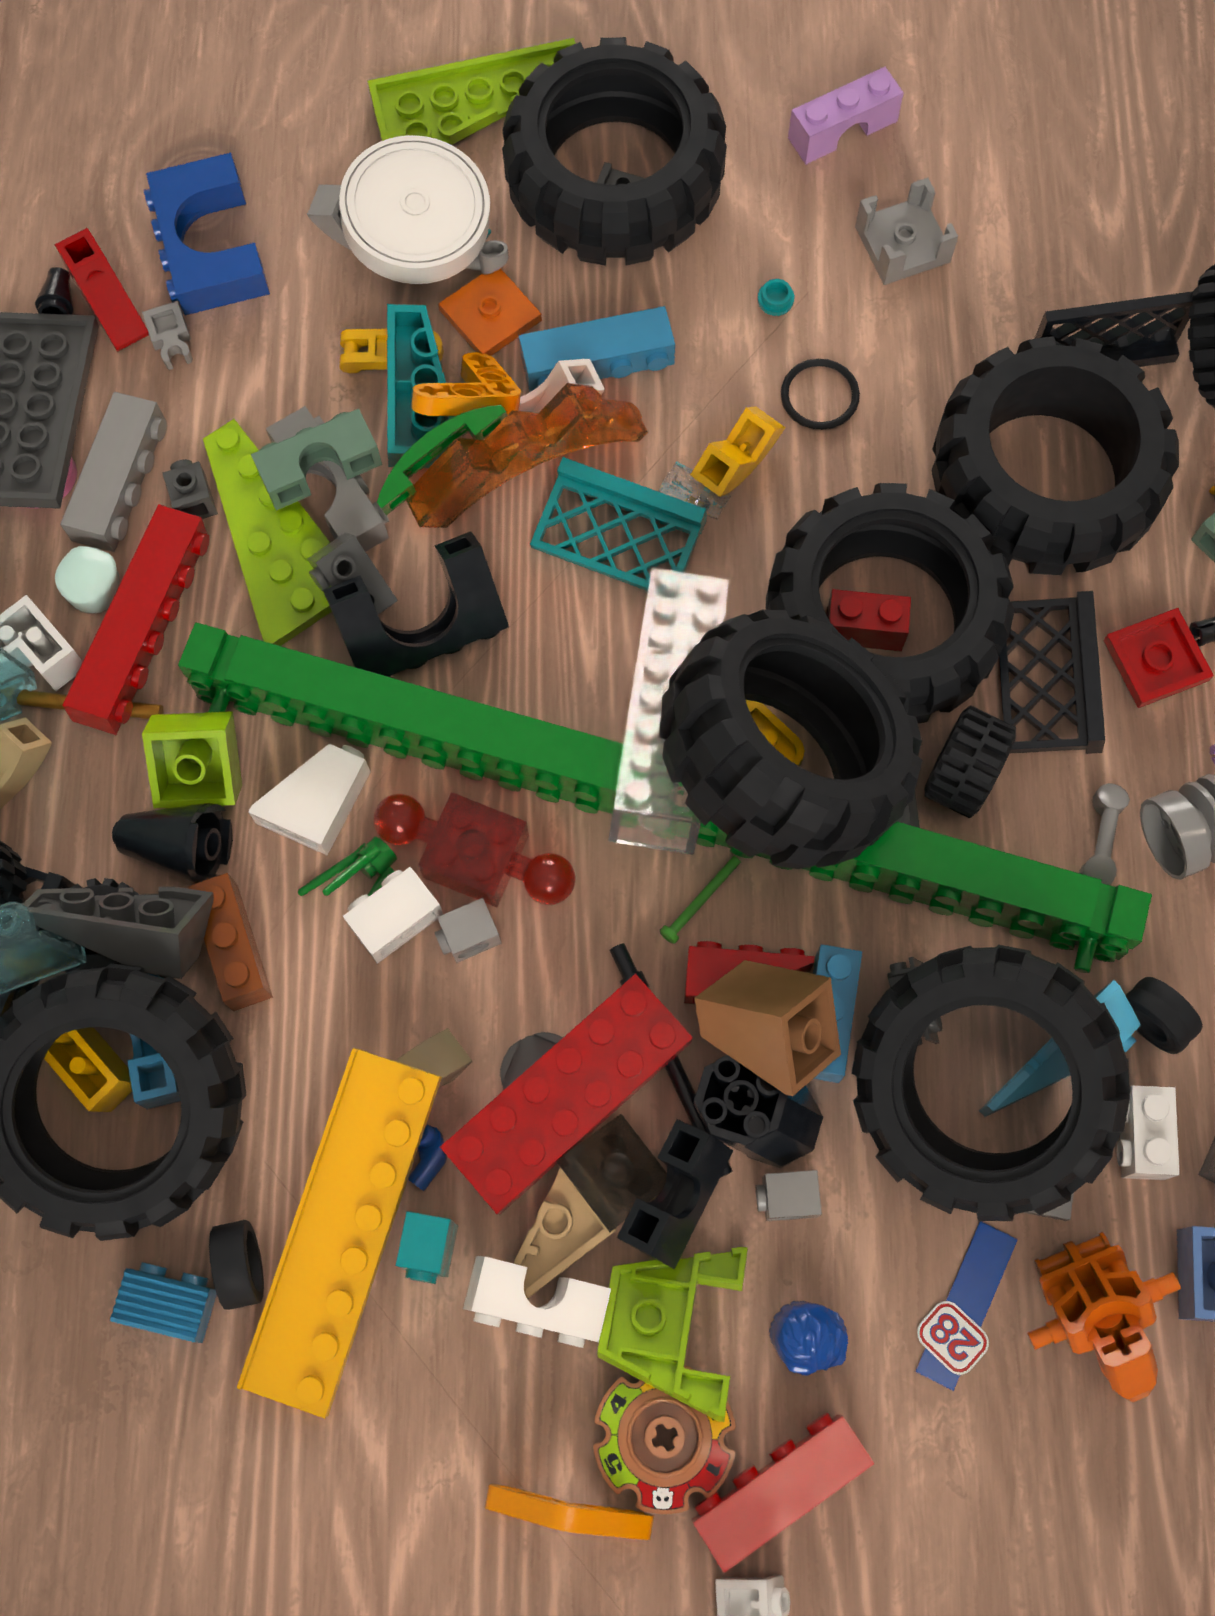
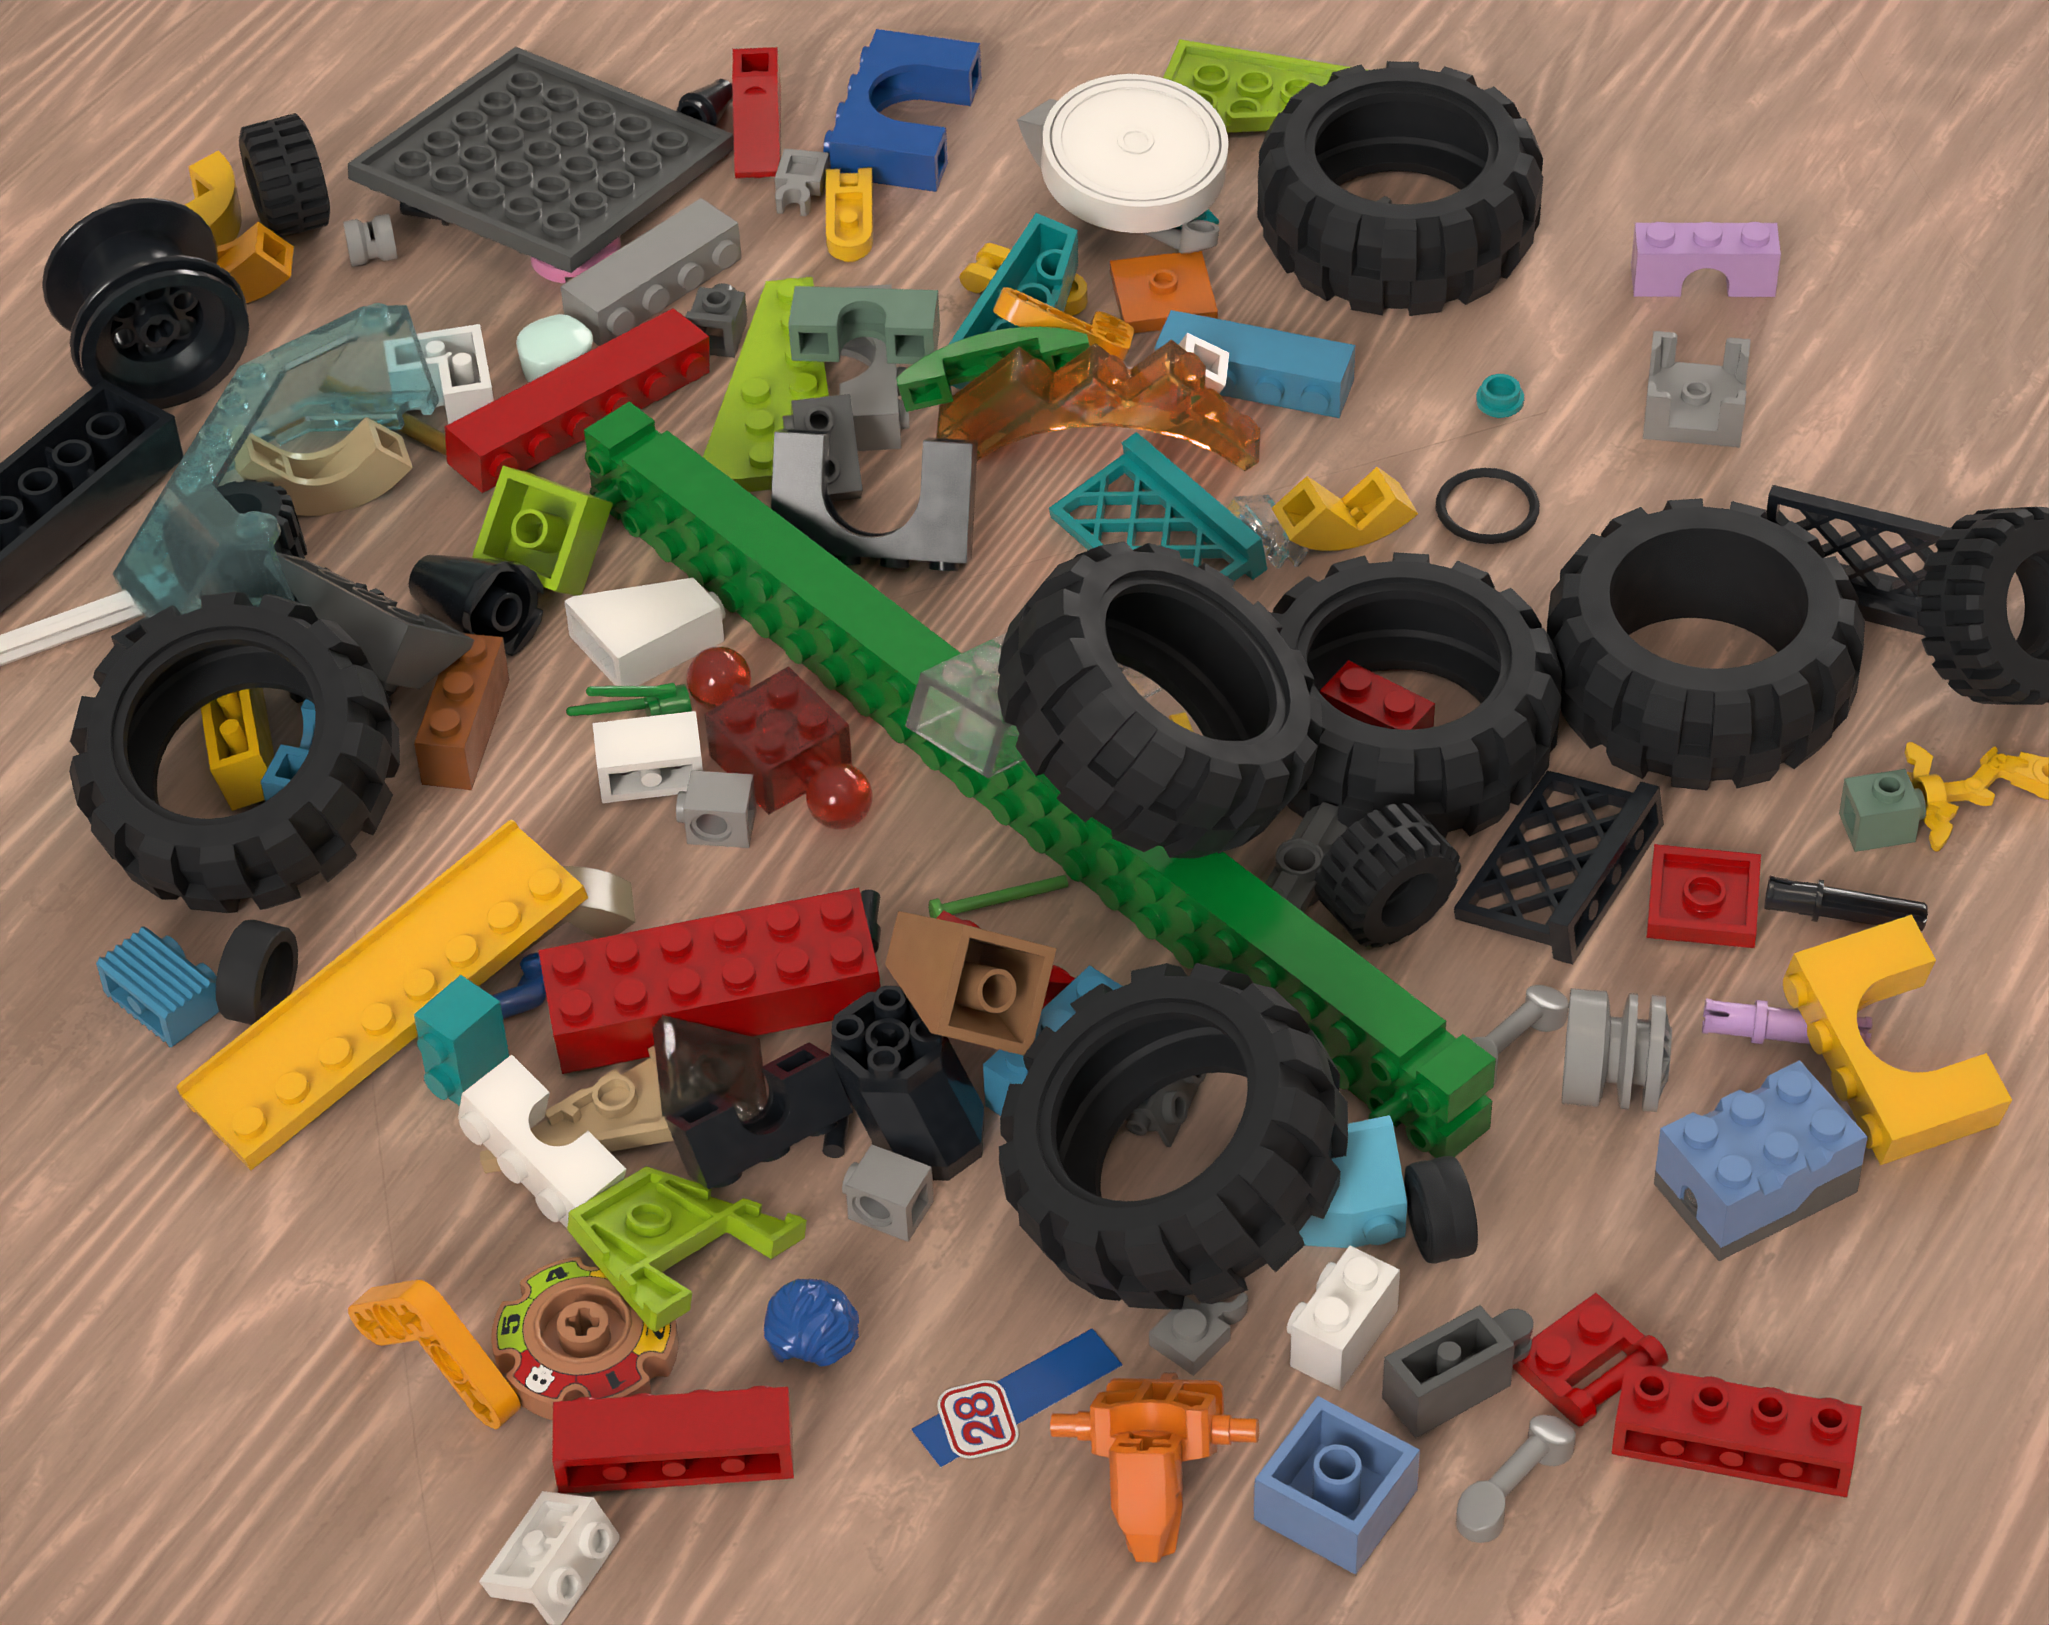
camera: 30 degrees right, 25 degrees down
(224, 347) = (849, 214): none -> yellow plate

